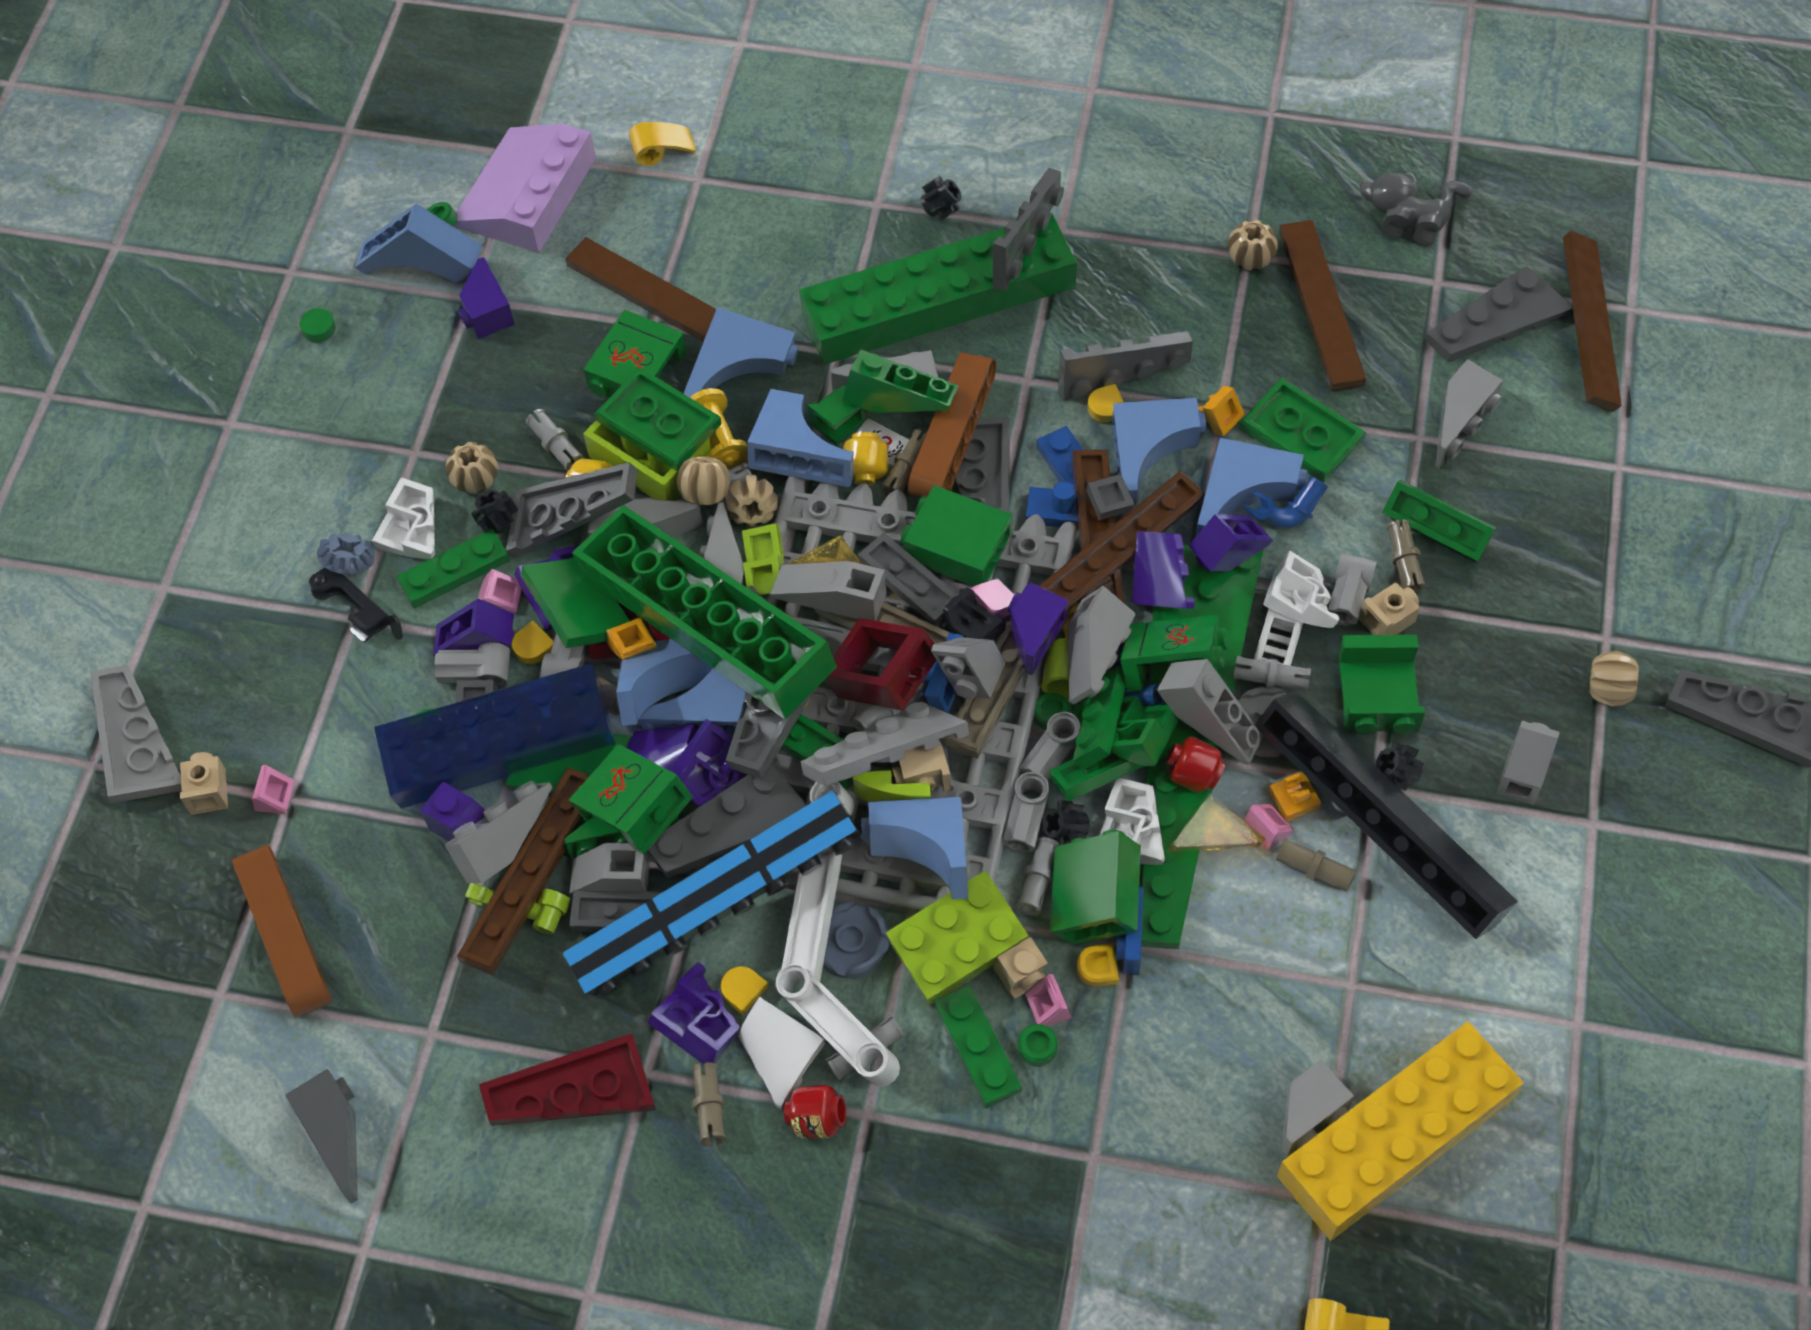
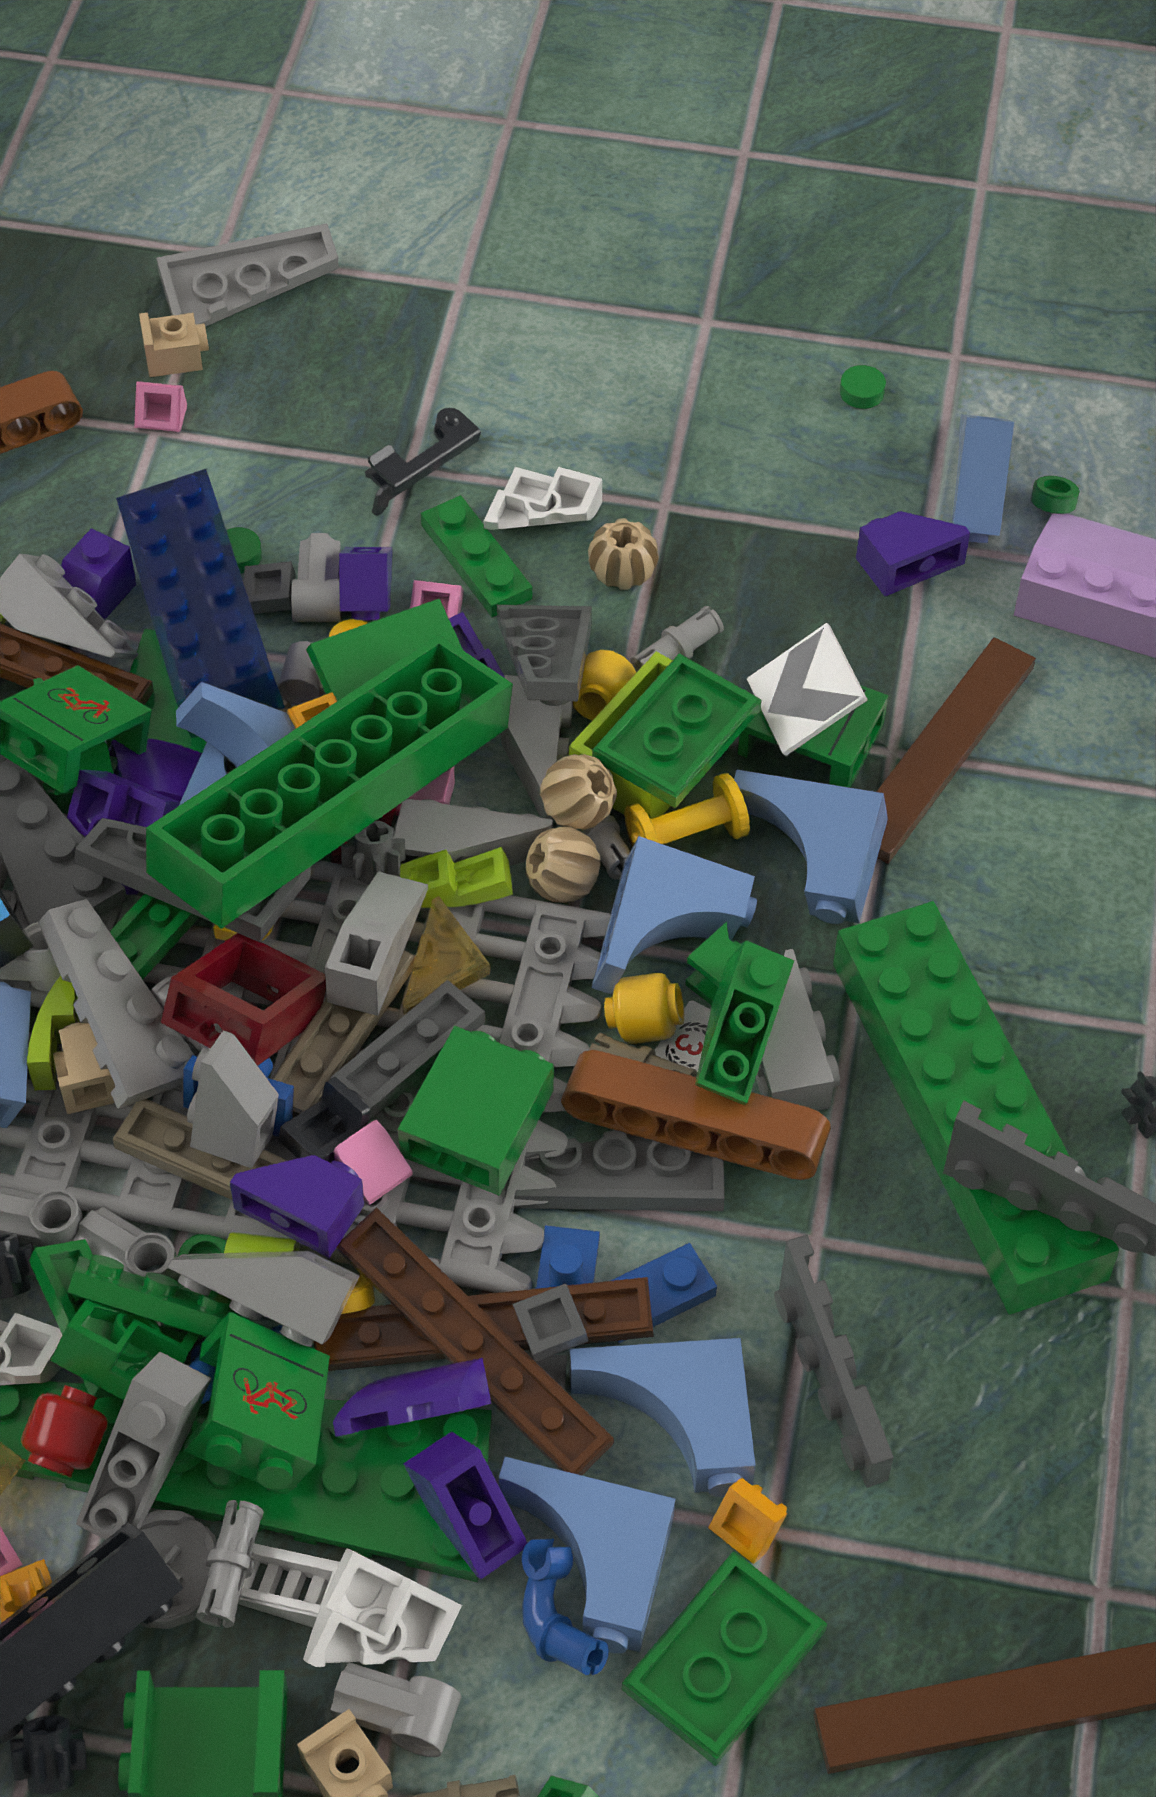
camera: 85 degrees right, 5 degrees down
(343, 562) = (494, 459): sand blue gear -> none
(494, 511) = (552, 581): black gear -> none
(628, 341) = (806, 689): none -> white piece
(1101, 403) = (767, 1349): yellow tile -> none
(1252, 245) = (1106, 1564): tan piece -> none

